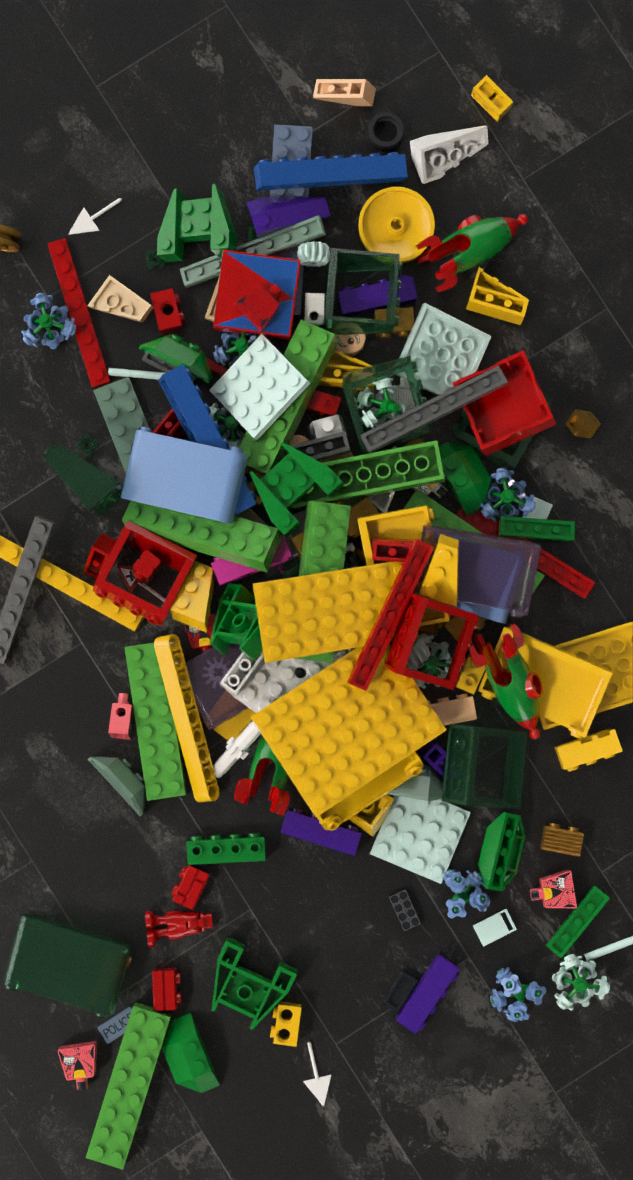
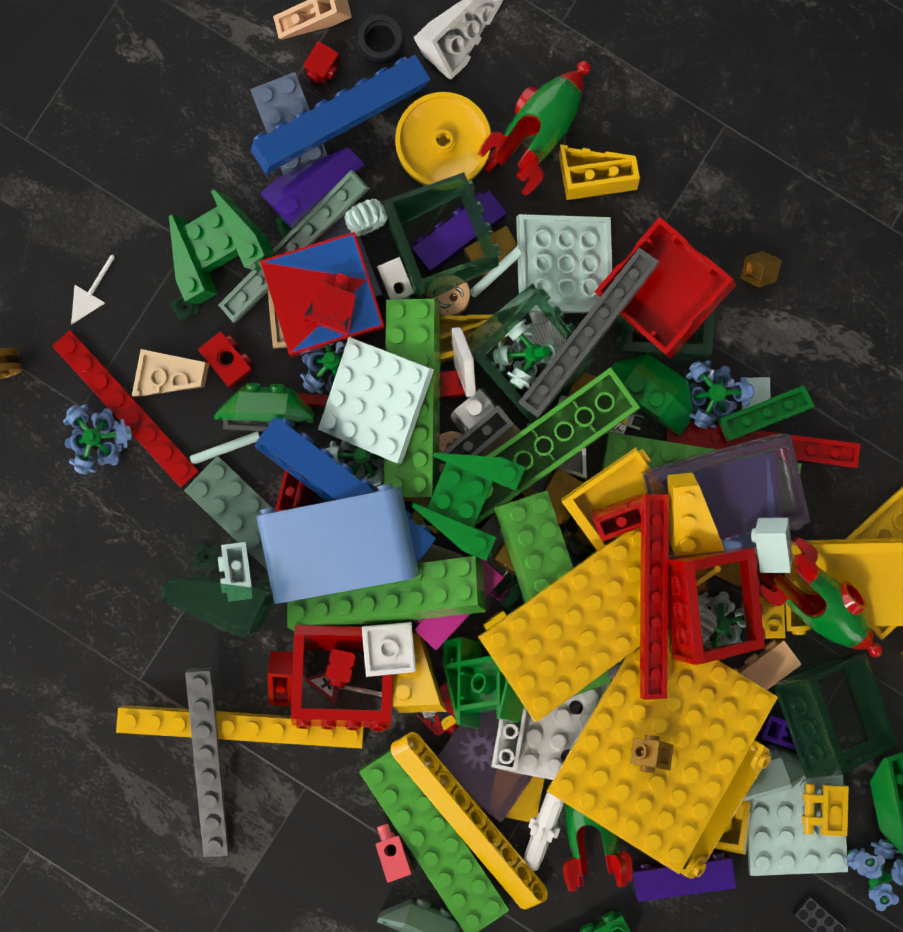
camera: 25 degrees left, 0 degrees up
(106, 457) = (235, 564): none -> light aqua brick
(186, 567) = (388, 649): none -> white tile
(332, 720) = (651, 754): none -> pearl gold brick
(335, 129) = (321, 63): none -> red brick
(335, 388) = (463, 361): none -> white tile
(391, 336) = (496, 272): none -> light aqua bar
(451, 832) = (833, 809): none -> yellow plate
(493, 620) = (773, 545): none -> light aqua brick

